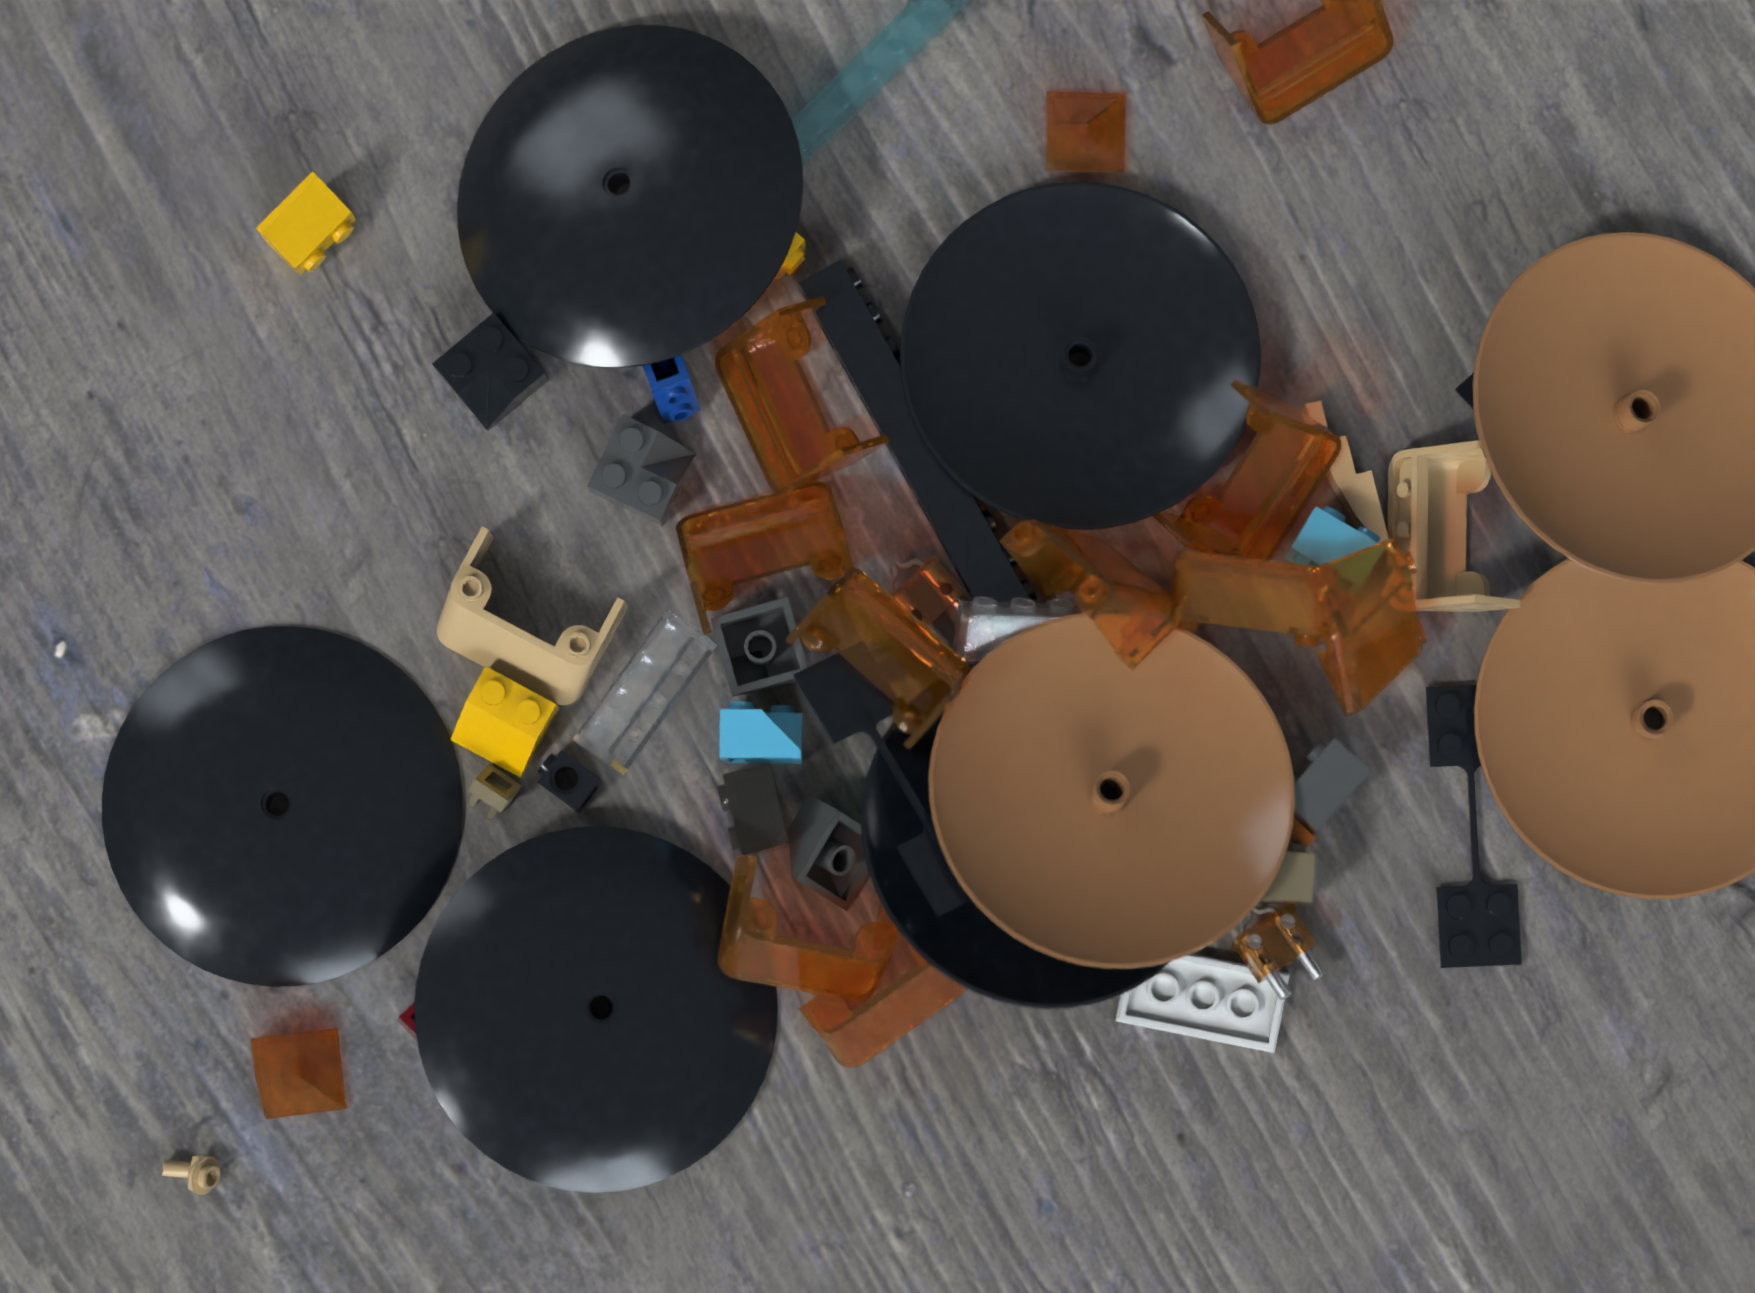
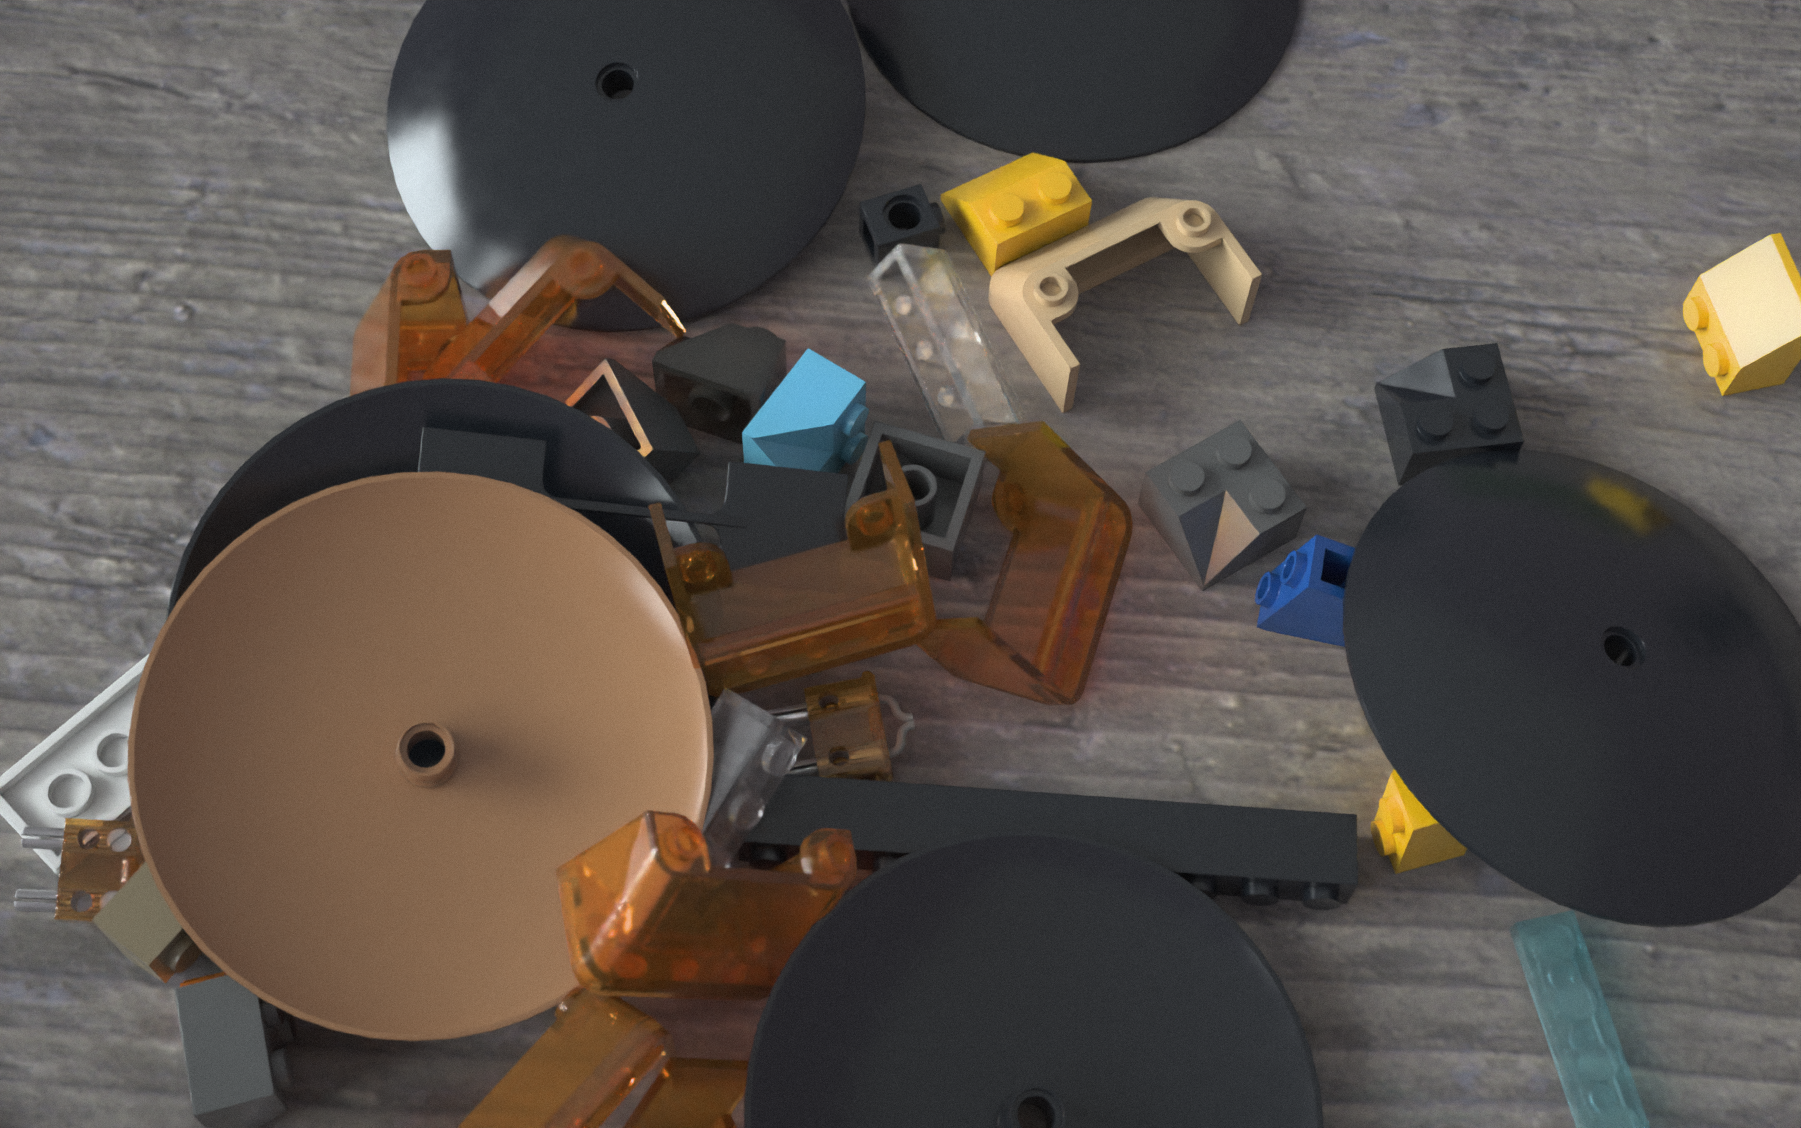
camera: 120 degrees right, 20 degrees down
(494, 789) = (945, 154): dark tan tile -> none
(779, 406) = (1206, 716): clear orange windscreen -> none

